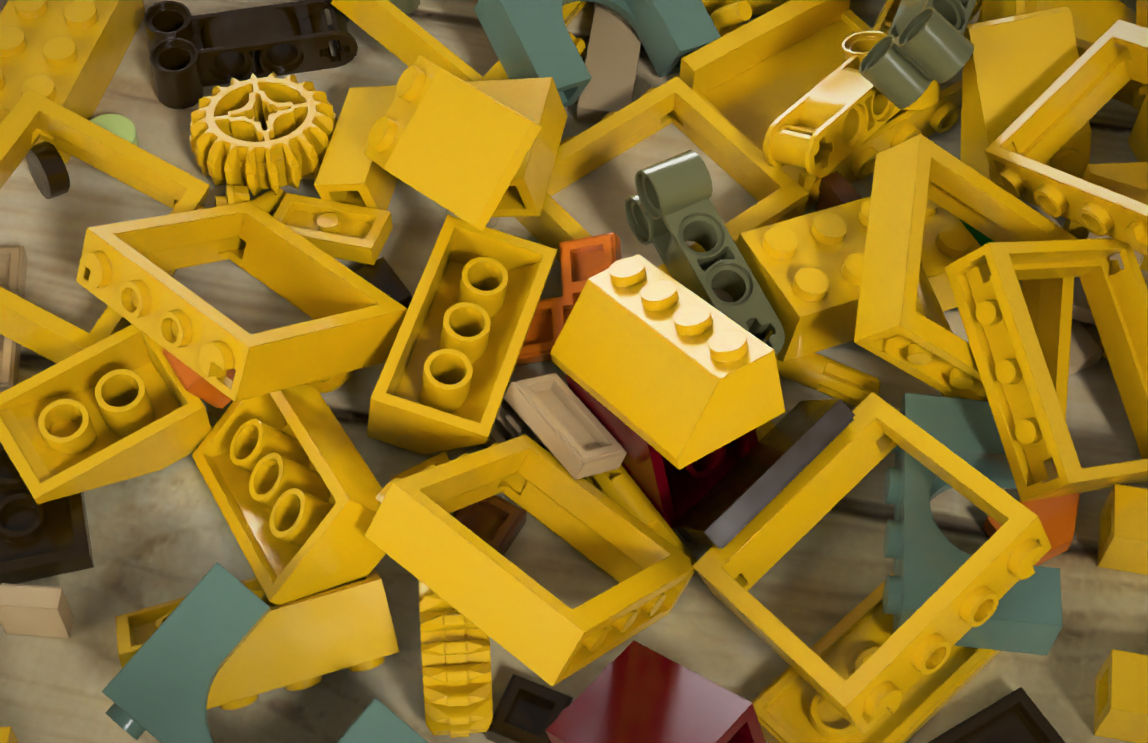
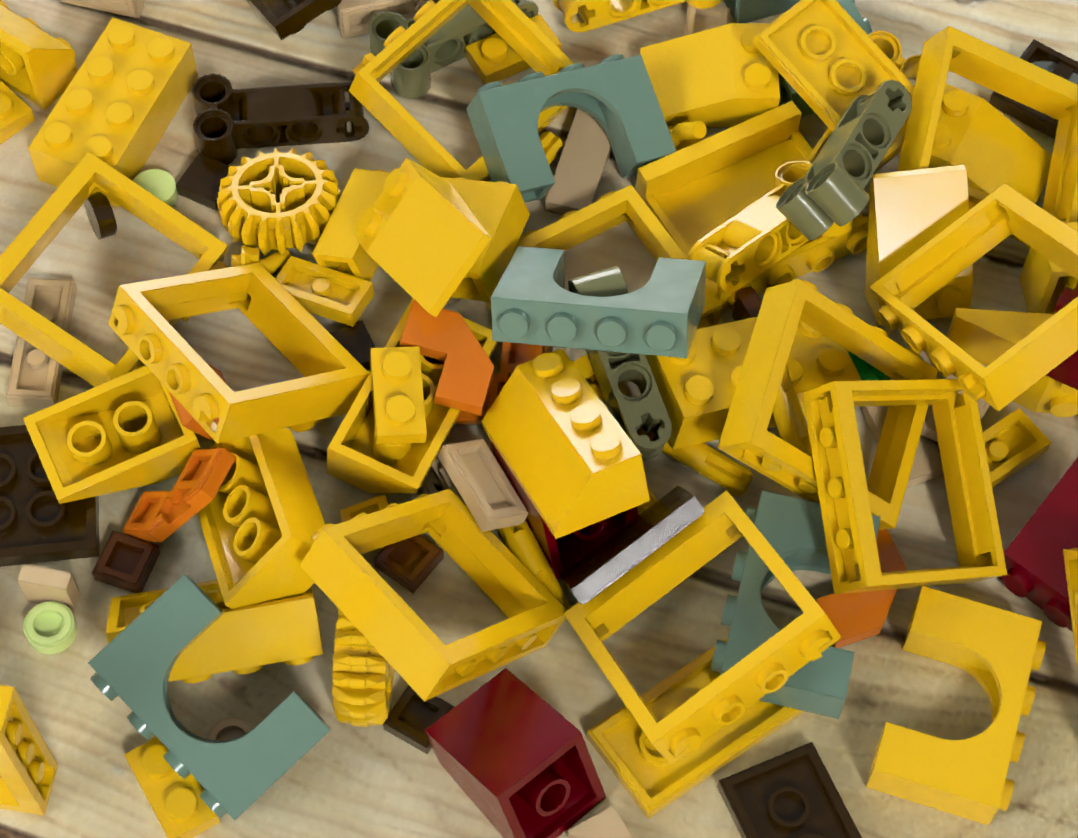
camera: 10 degrees right, 5 degrees up
(40, 662) = (50, 627): none -> yellowish green tile
(129, 571) = (126, 562): none -> reddish brown tile
(167, 123) = (203, 180): none -> dark brown tile
(171, 502) = (164, 512): none -> orange tile
(448, 329) = (398, 395): none -> yellow plate
(497, 257) = (466, 365): none -> orange tile
(742, 206) = (653, 320): none -> sand green arch

